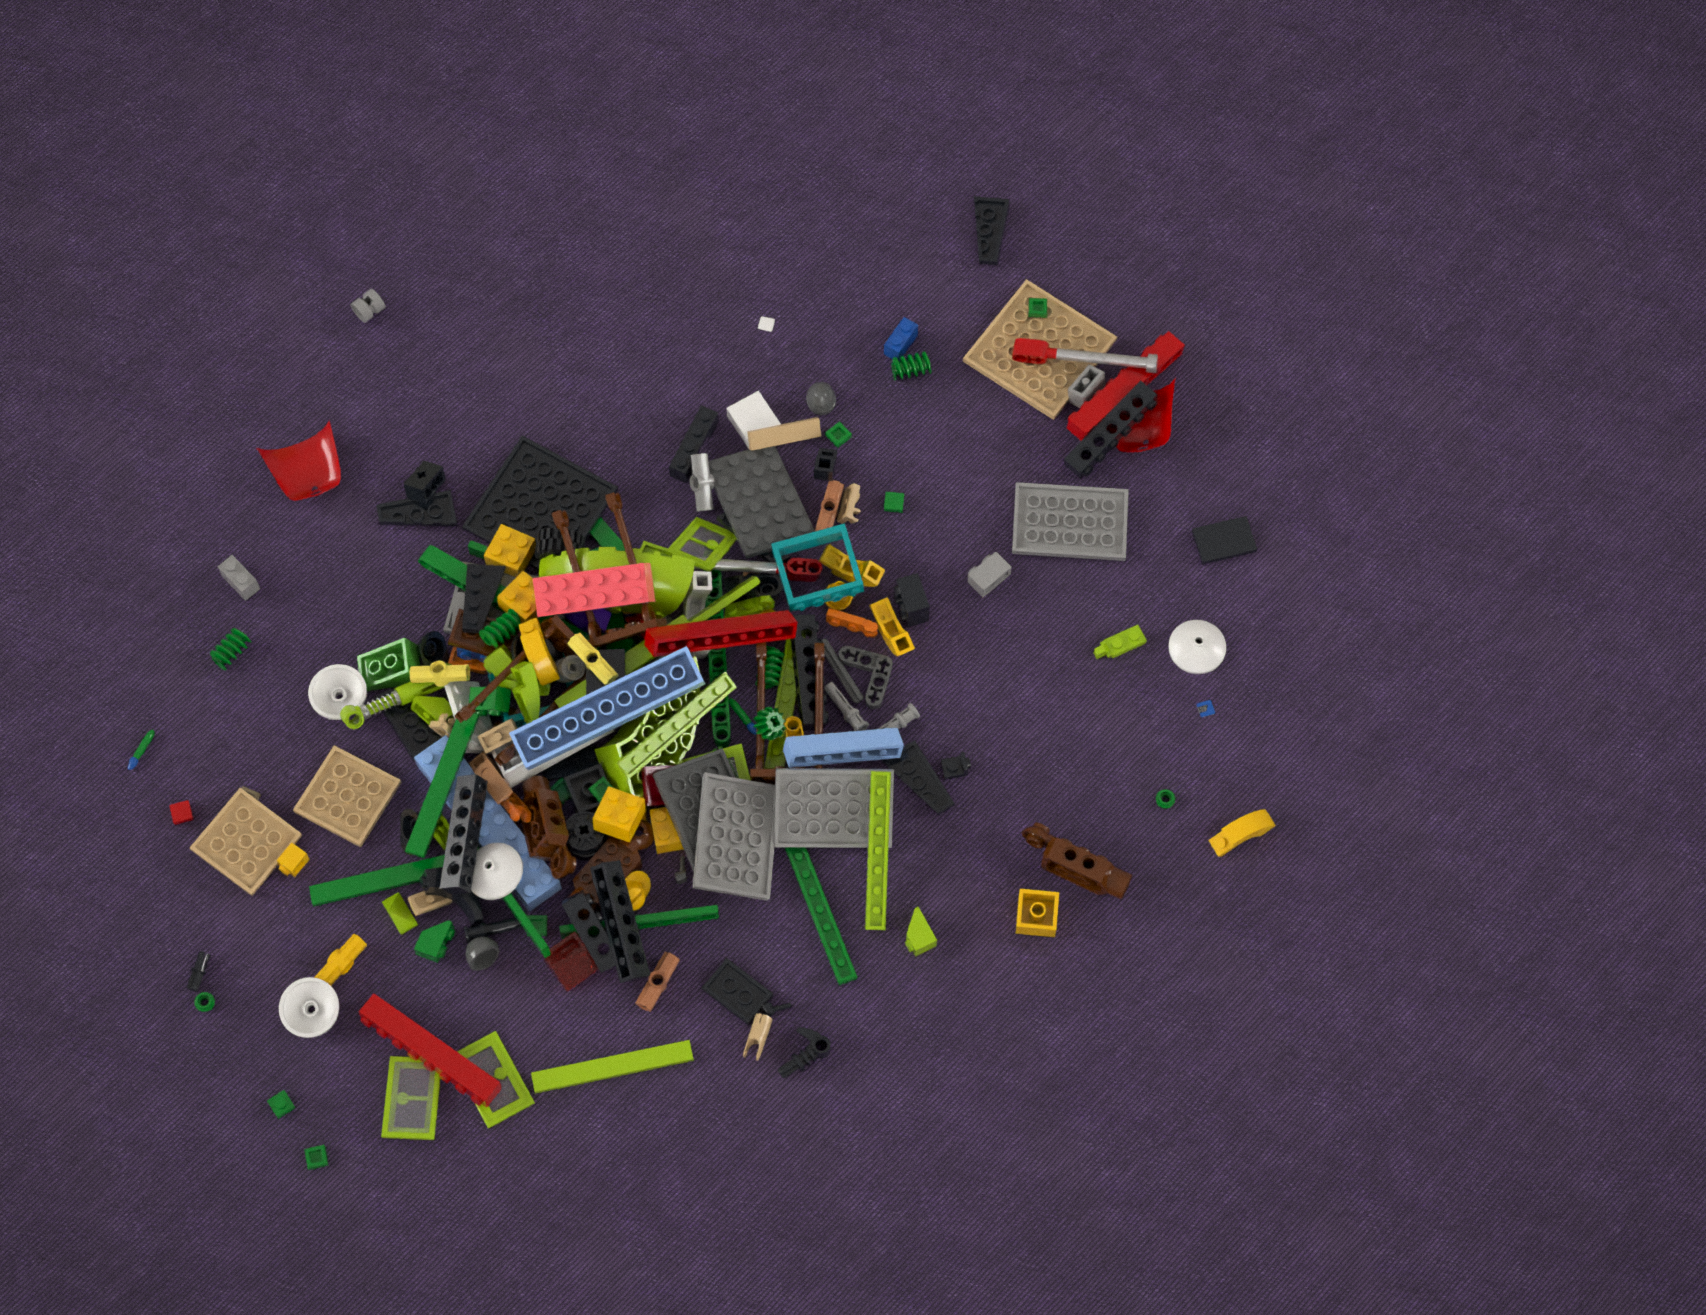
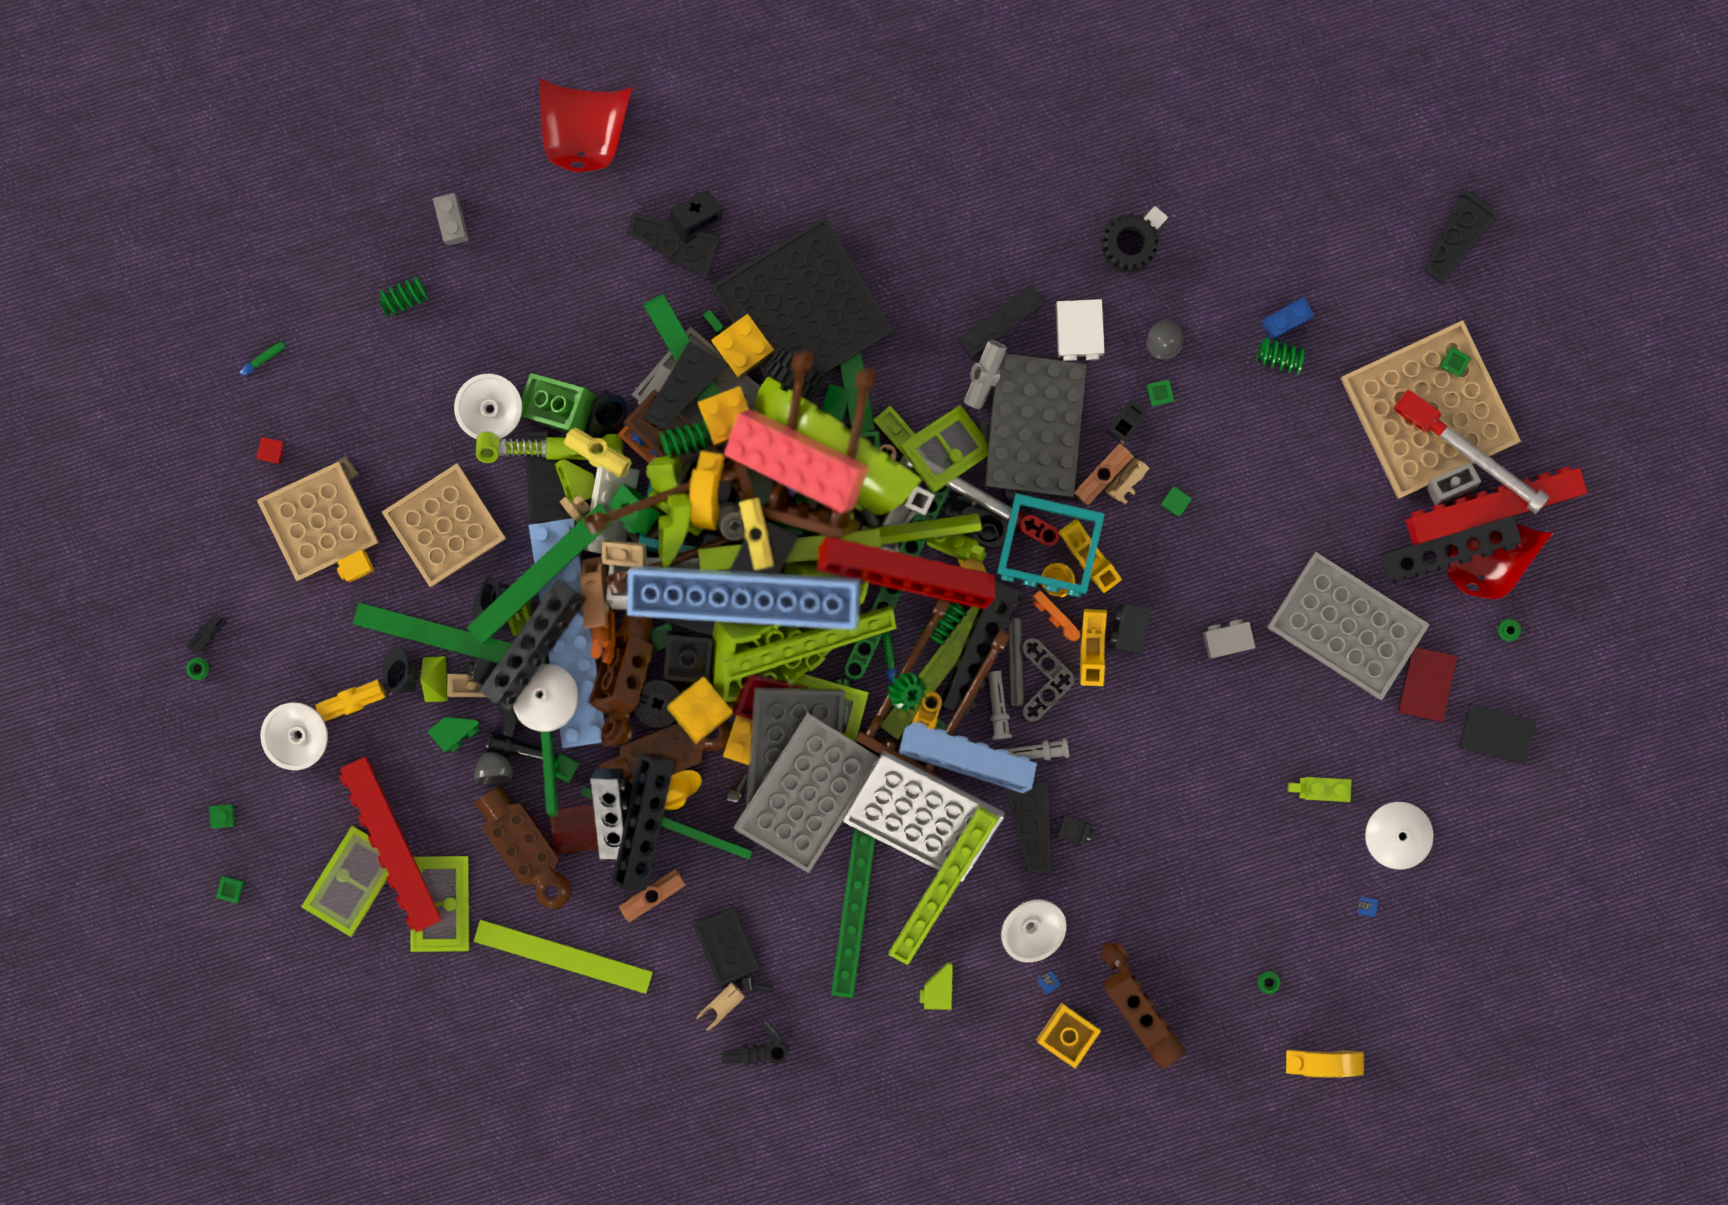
camera: 30 degrees right, 20 degrees up
(367, 918) = (398, 672): none -> black piece
(536, 996) = (524, 846): none -> reddish brown brick
(599, 788) = (699, 668): green tile -> none
(752, 333) = (1143, 230): none -> black tyre
(784, 433) = (1102, 364): tan tile -> none
(974, 846) = (1038, 938): none -> white dish
(1001, 888) = (1049, 982): none -> blue sticker
(1152, 532) = (1427, 684): none -> dark red tile
(1188, 470) = (1503, 633): none -> green plate

